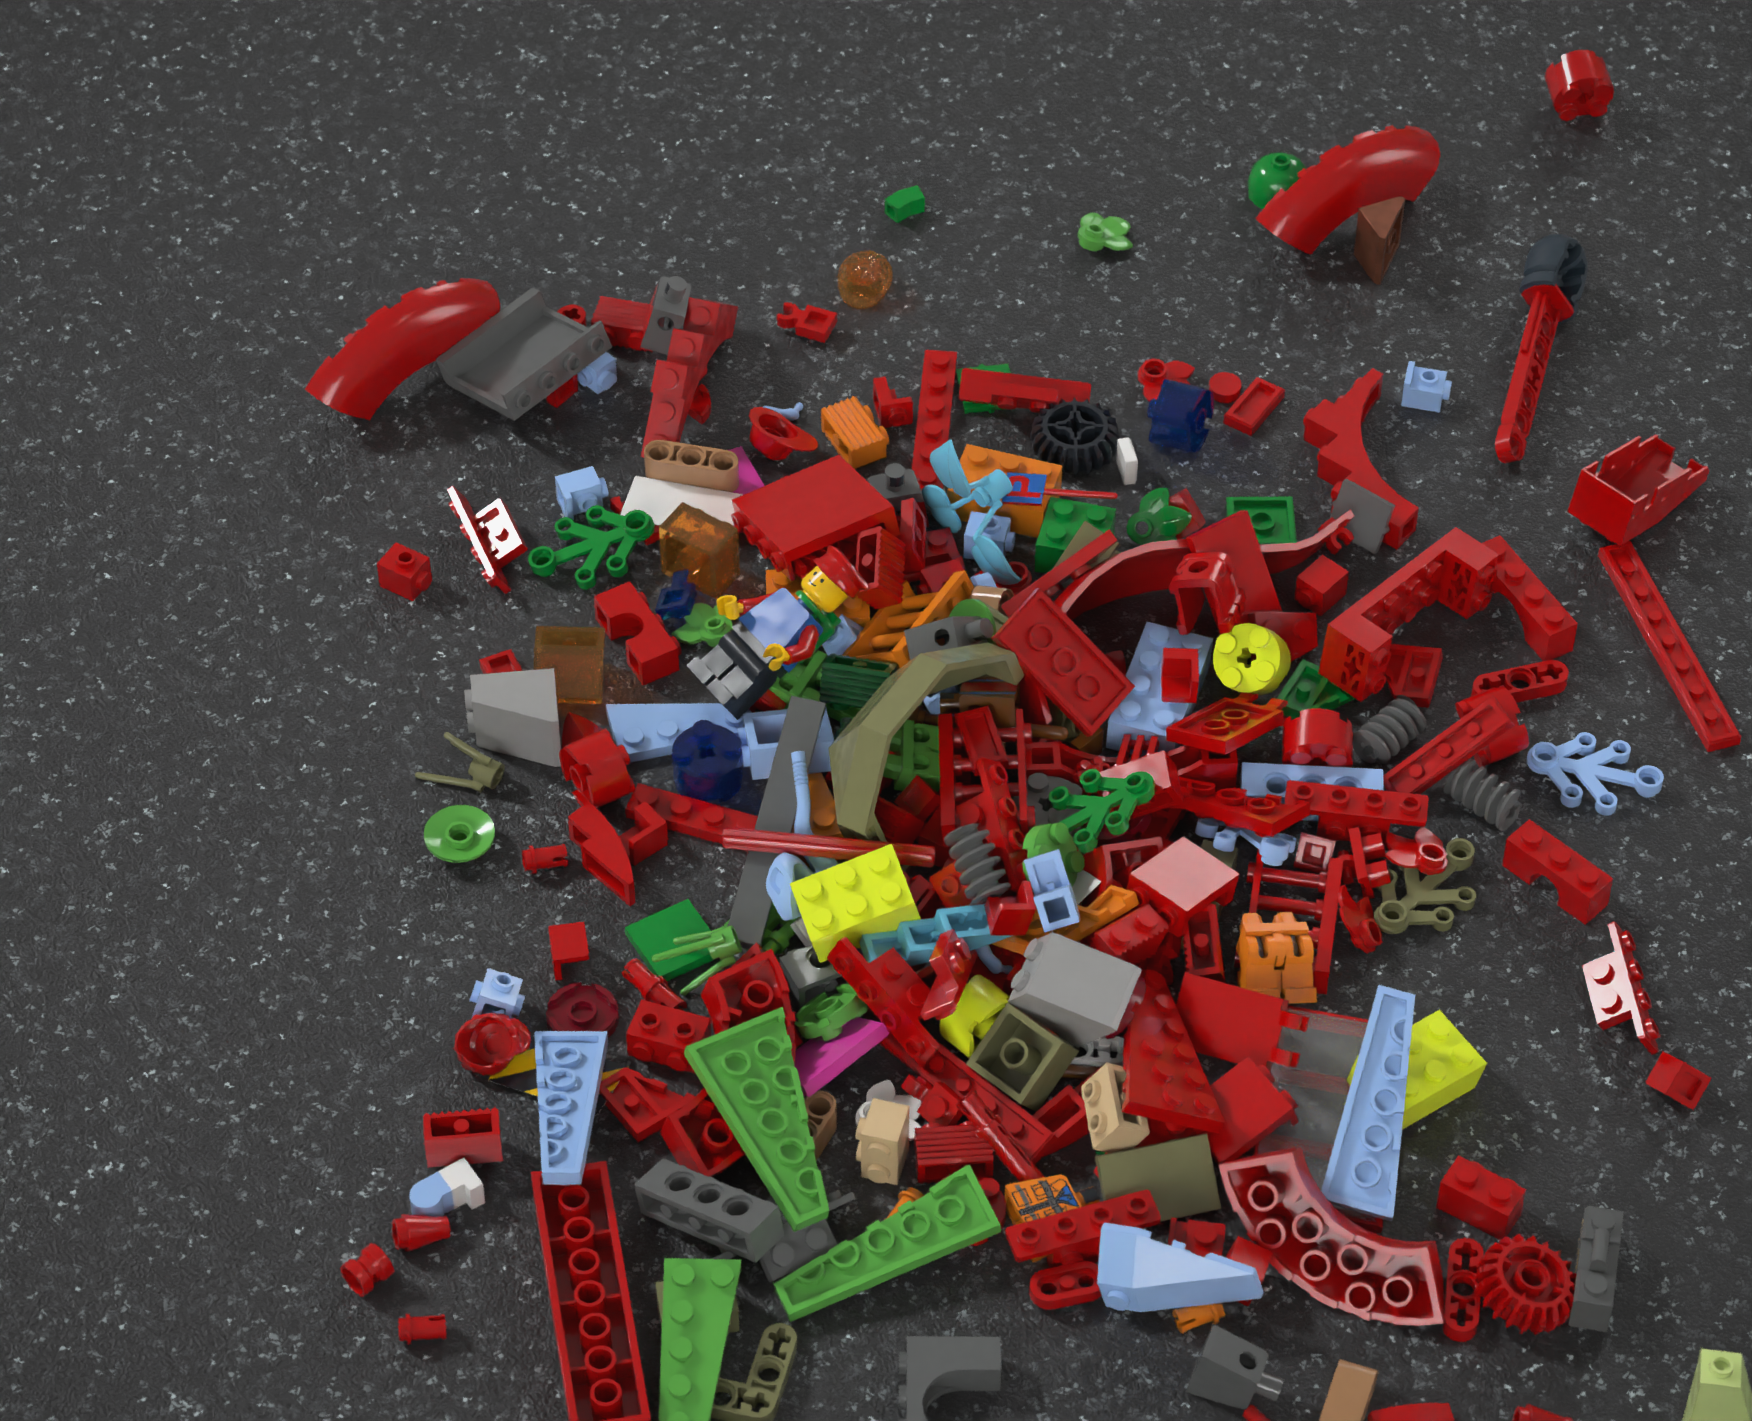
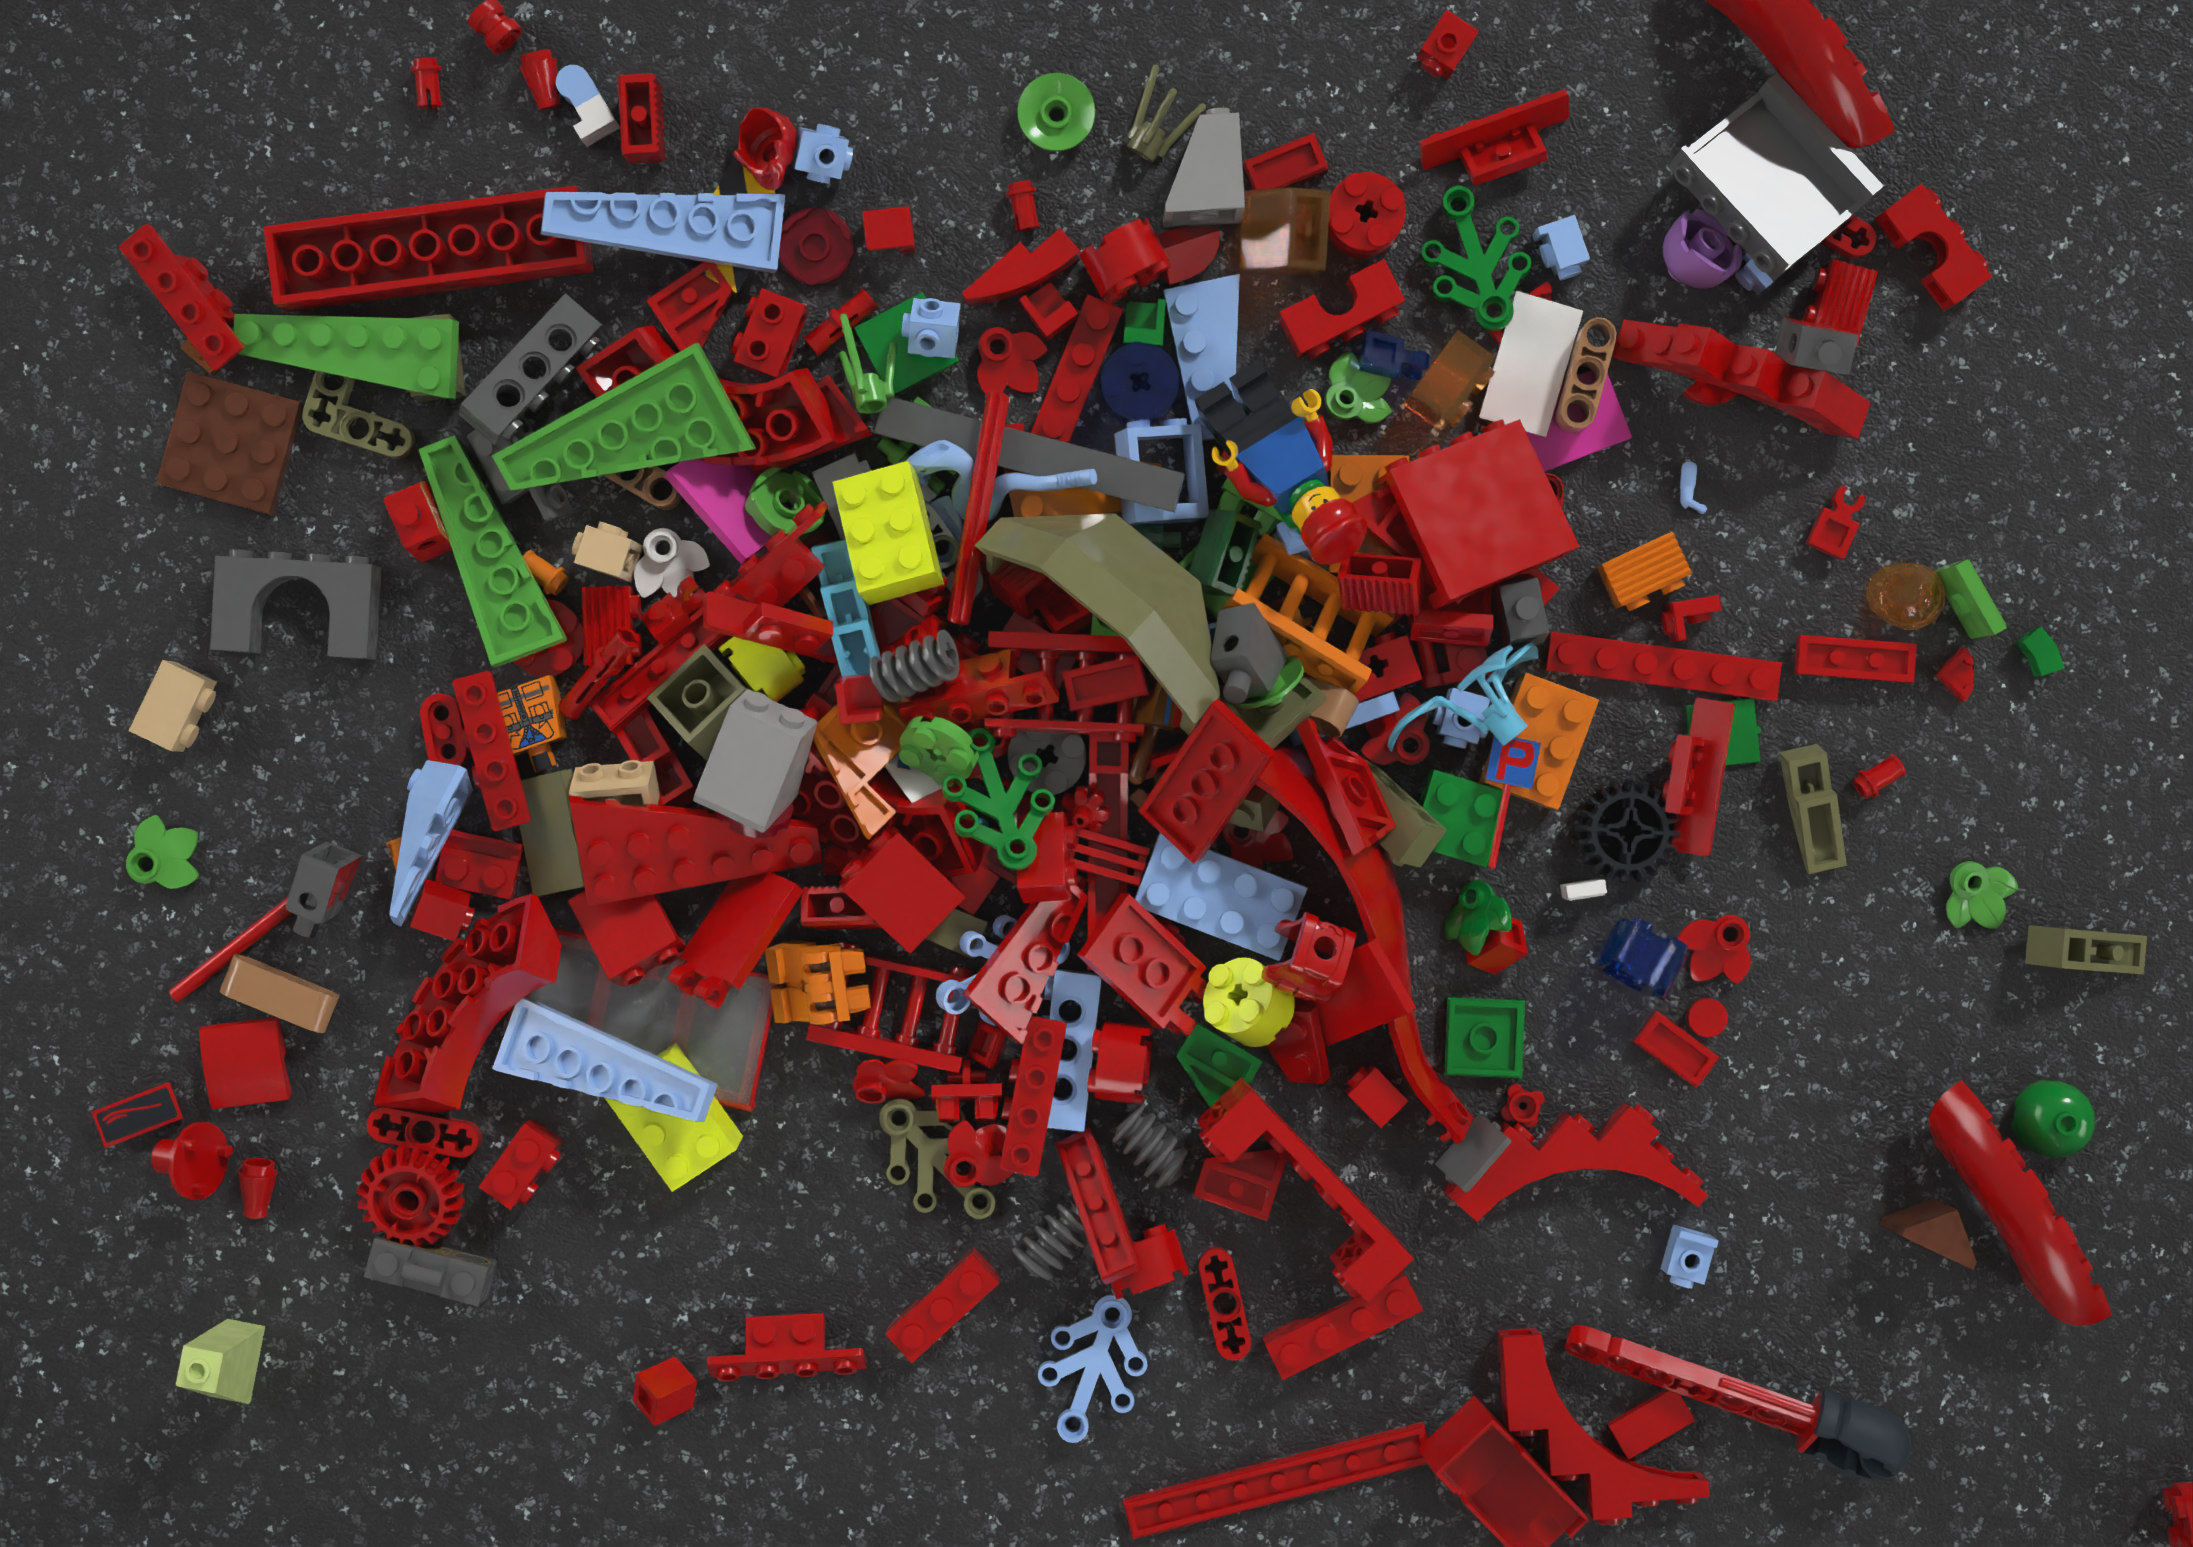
camera: 90 degrees right, 40 degrees up
(552, 604) = (1386, 214): none -> red brick
(586, 404) = (1699, 251): none -> medium lavender cylinder
(595, 258) = (1957, 267): none -> red arch
(652, 764) = (1145, 322): none -> green panel
(661, 900) = (932, 328): none -> light blue brick
(692, 865) = (1014, 365): none -> red plate
(776, 435) = (1639, 483): red piece -> none
(856, 1305) = (418, 521): none -> red torso
(868, 229) = (1970, 600): none -> bright green plate
(918, 307) = (1855, 659): none -> red plate
(926, 252) = (1958, 674): none -> red tile
(1019, 295) = (1878, 777): none -> red pin
(1042, 327) = (1813, 808): none -> olive slope
(1052, 891) = (868, 748): light blue brick -> none
(1132, 936) = (828, 823): red brick -> none
(1141, 171) = (2085, 950): none -> olive slope
(1179, 675) = (1203, 915): red panel -> none
(1315, 495) = (1533, 1102): none -> red plate
(1553, 478) = (1610, 1479): none -> red arch
(1569, 410) = (1650, 1422): none -> red tile

